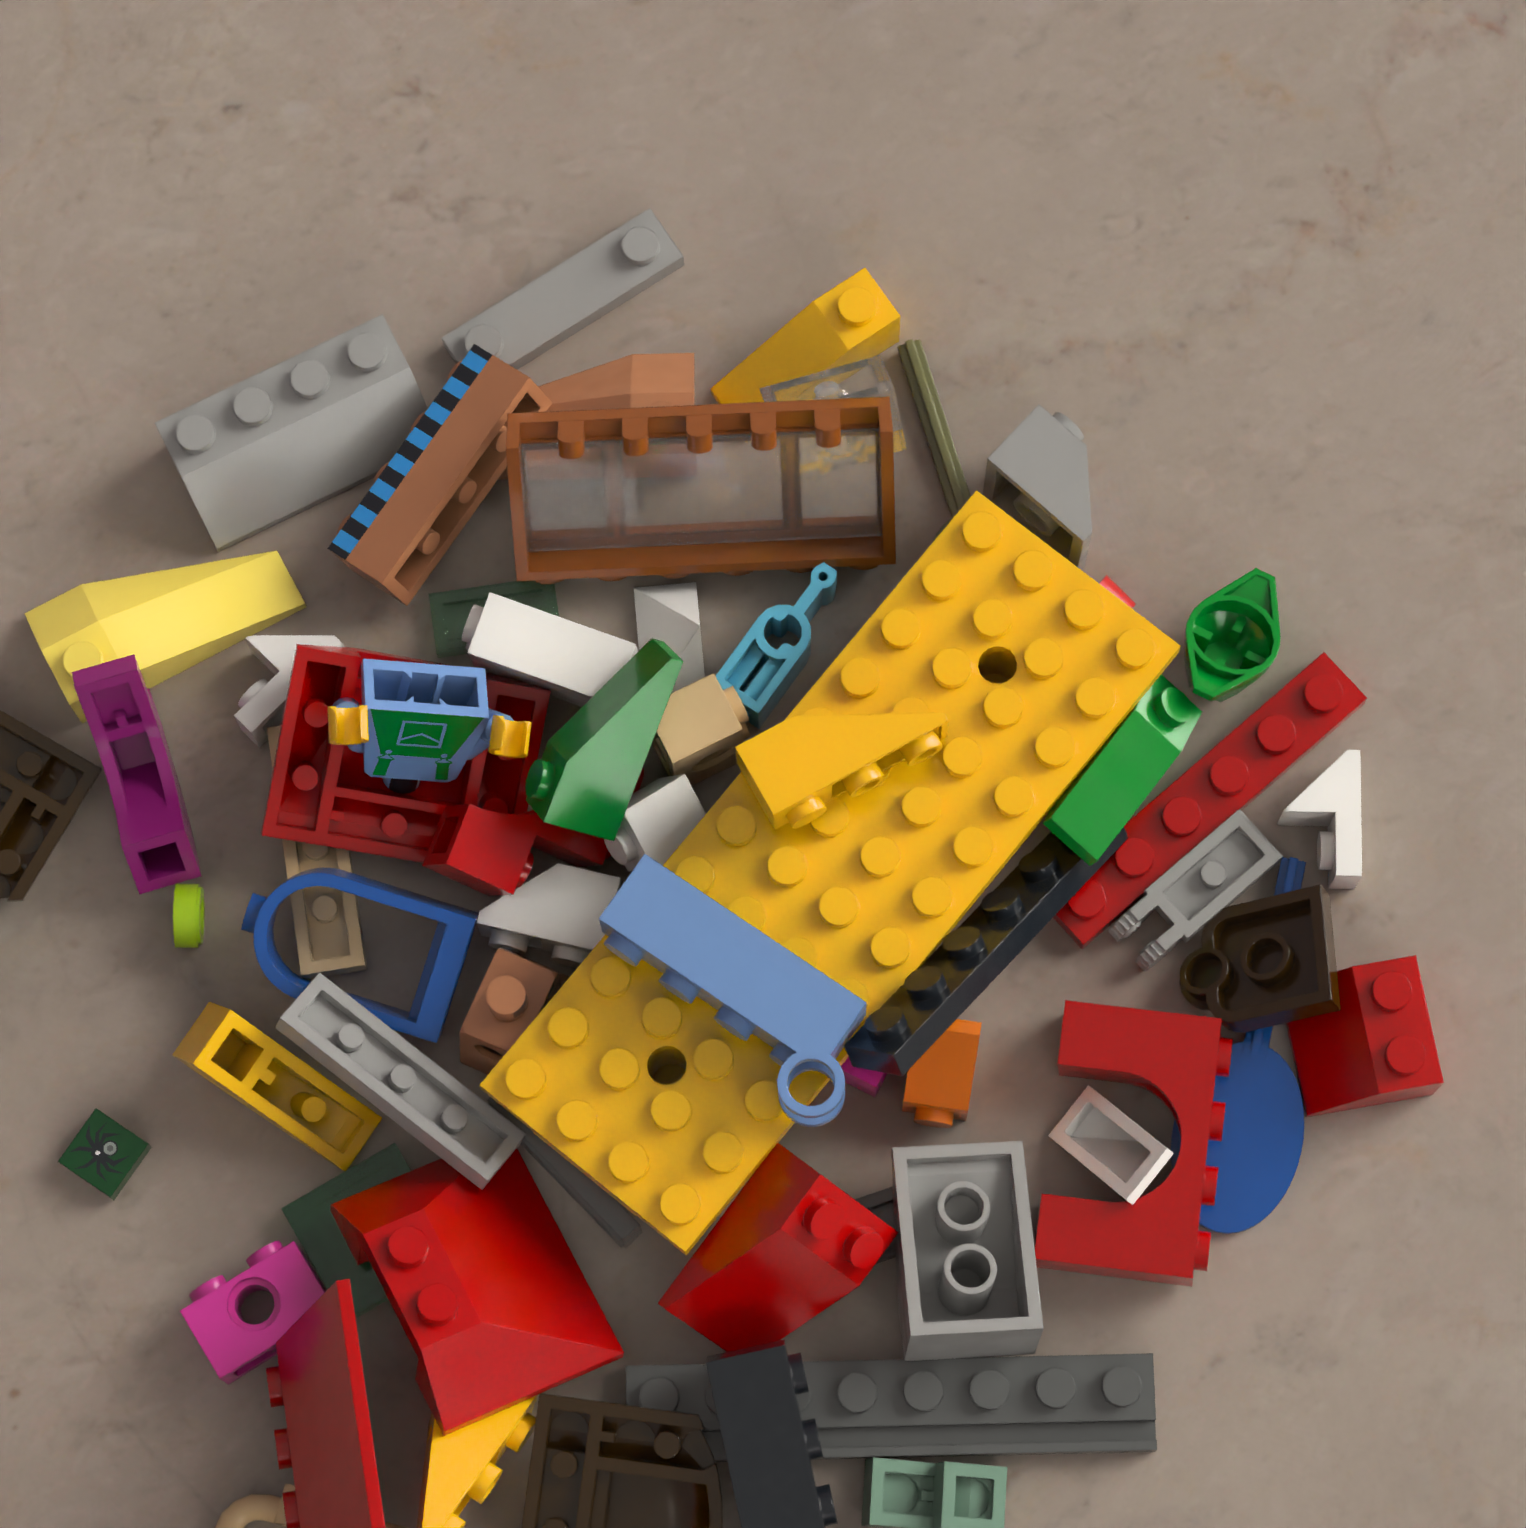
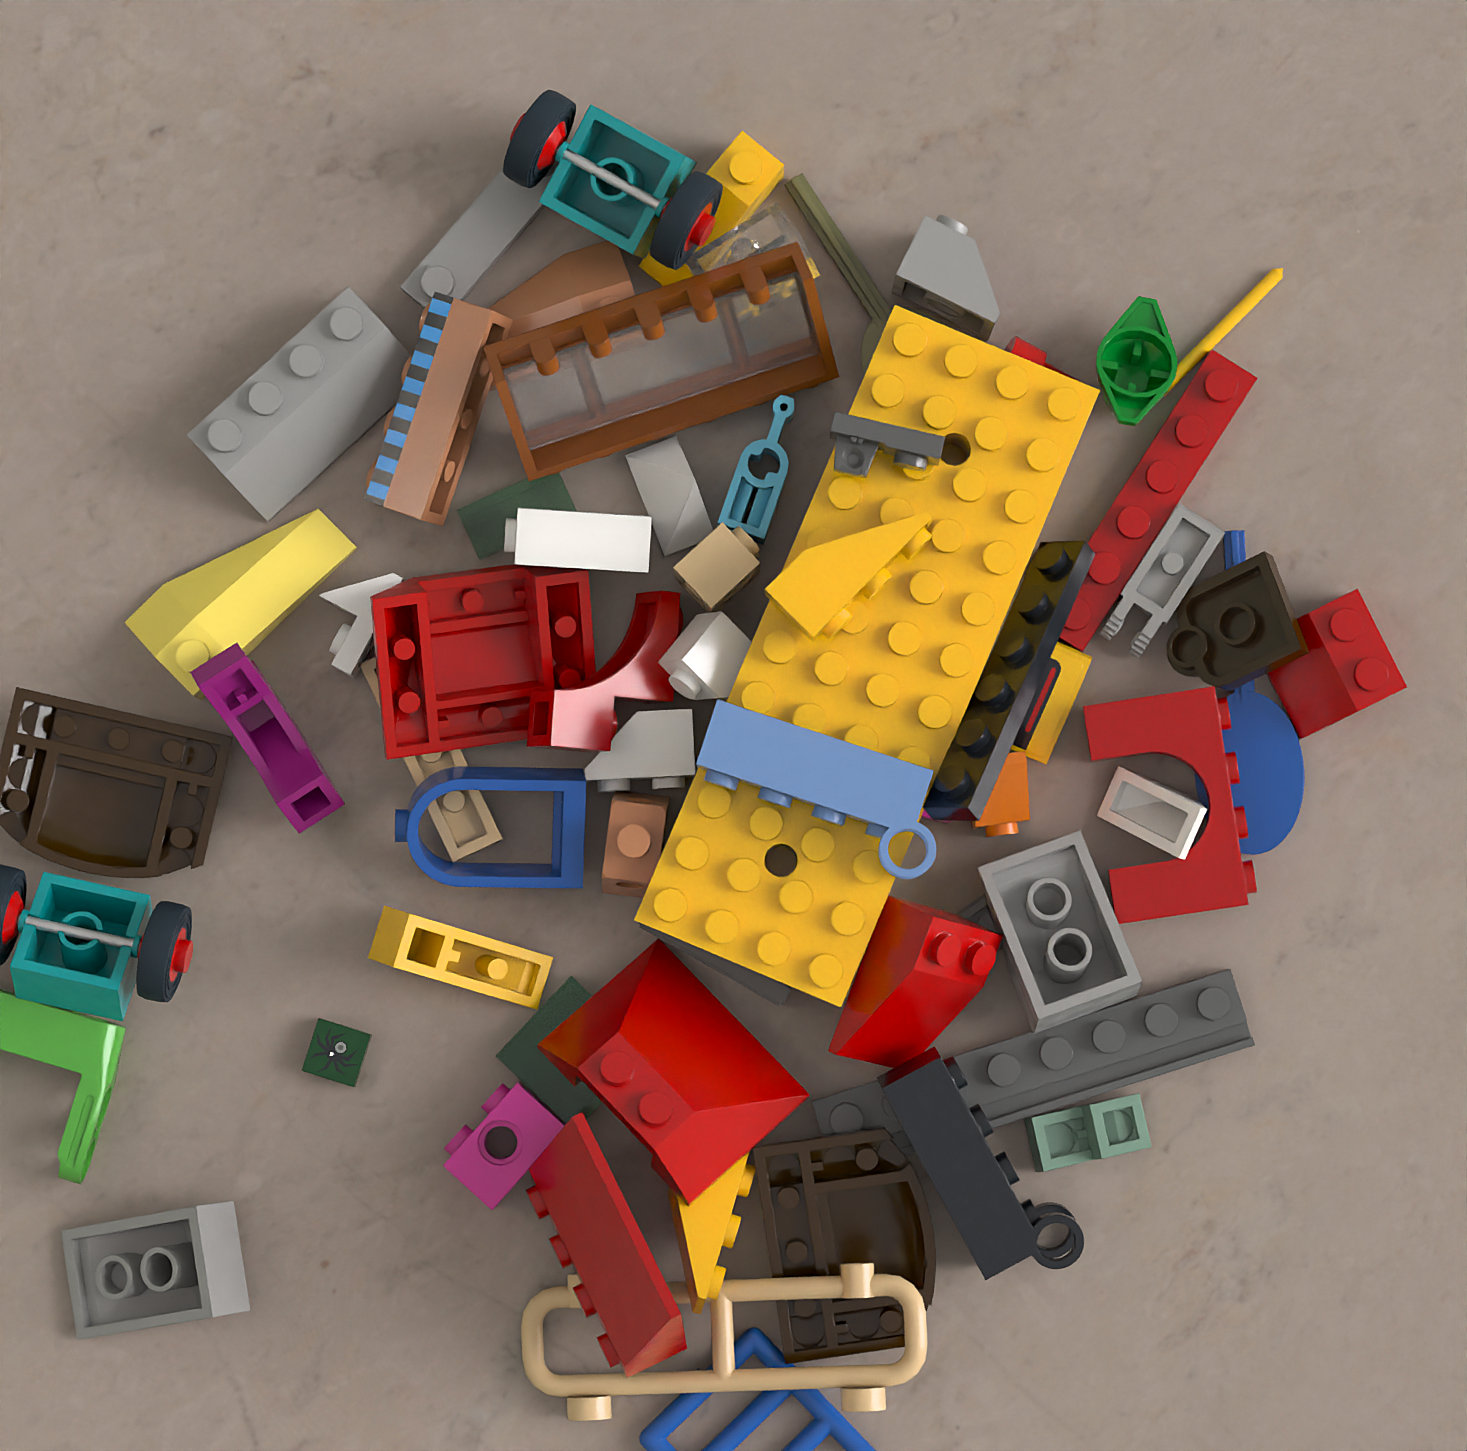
camera: 20 degrees left, 10 degrees up
(188, 915) = (344, 838): lime tile -> none
(400, 1080) = (565, 930): light grey plate -> none
(422, 722) = (495, 631): torso -> none
(601, 750) = (650, 616): green slope -> none
(705, 278) = (614, 180): none -> brick
(894, 616) = (861, 437): none -> dark grey hinge
(1027, 988) = (1051, 702): none -> slope
(1123, 771) = (1080, 506): green slope -> none
(1335, 803) = (1258, 474): white slope -> none
(1340, 636) = (1227, 324): none -> yellow axle

